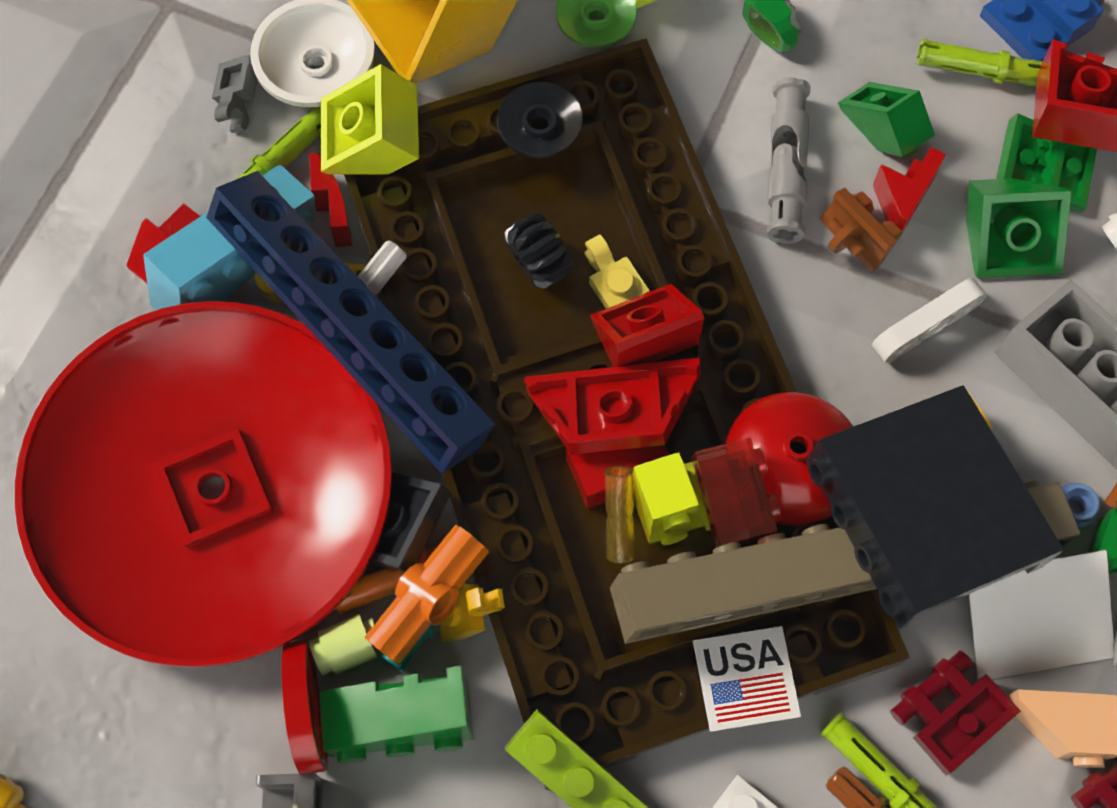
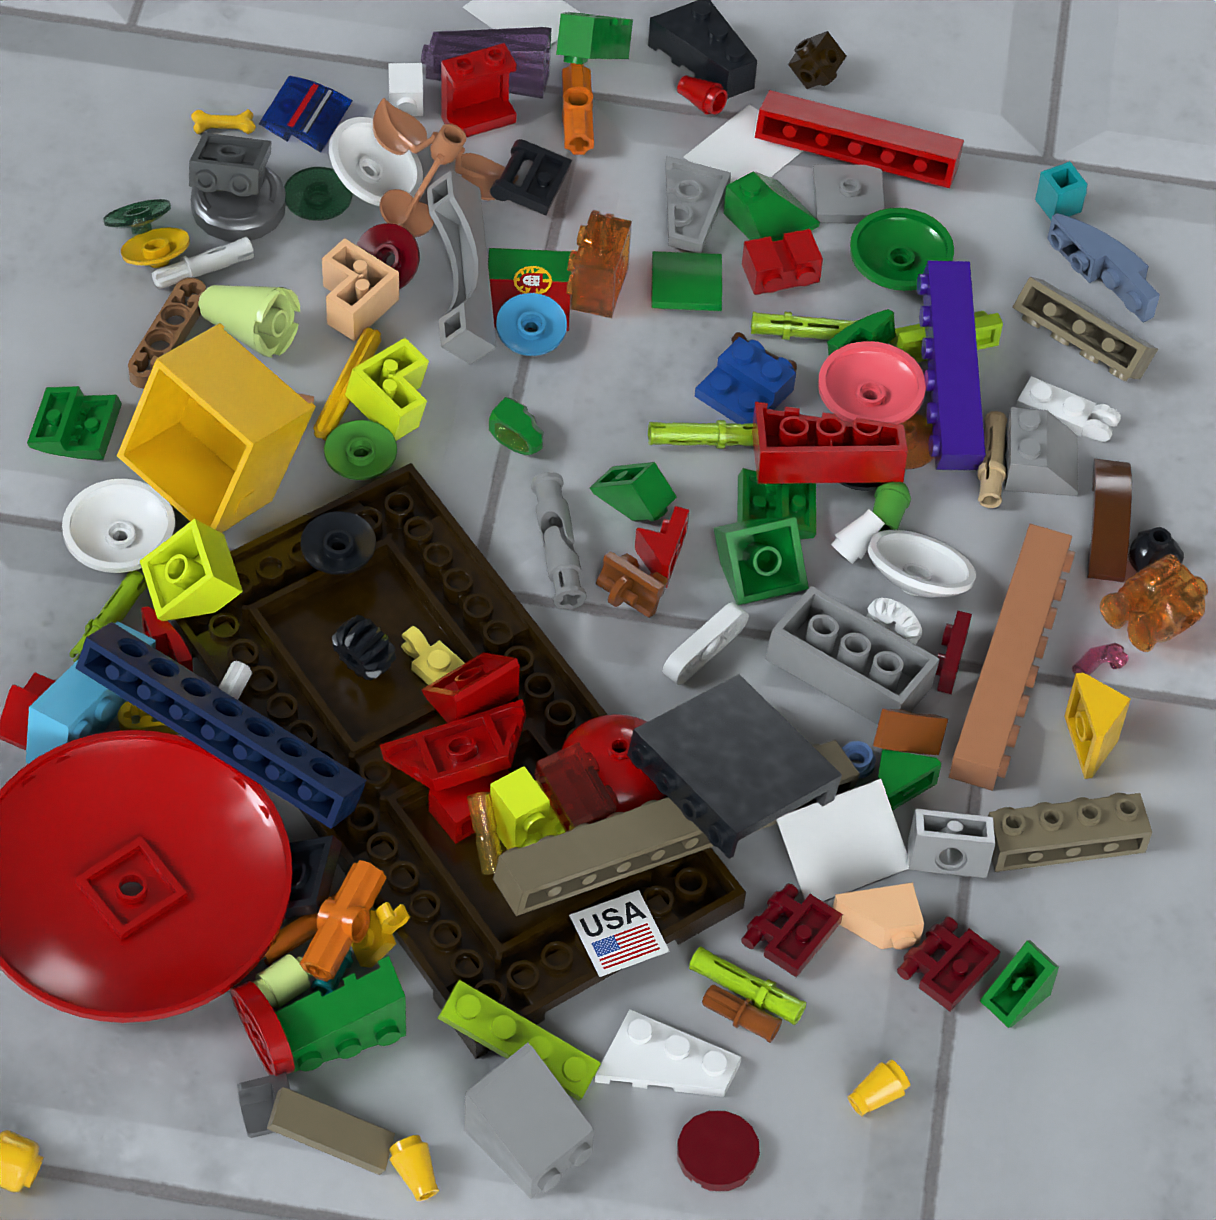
camera: 20 degrees left, 15 degrees down
(232, 87) = (50, 568): dark grey plate -> none

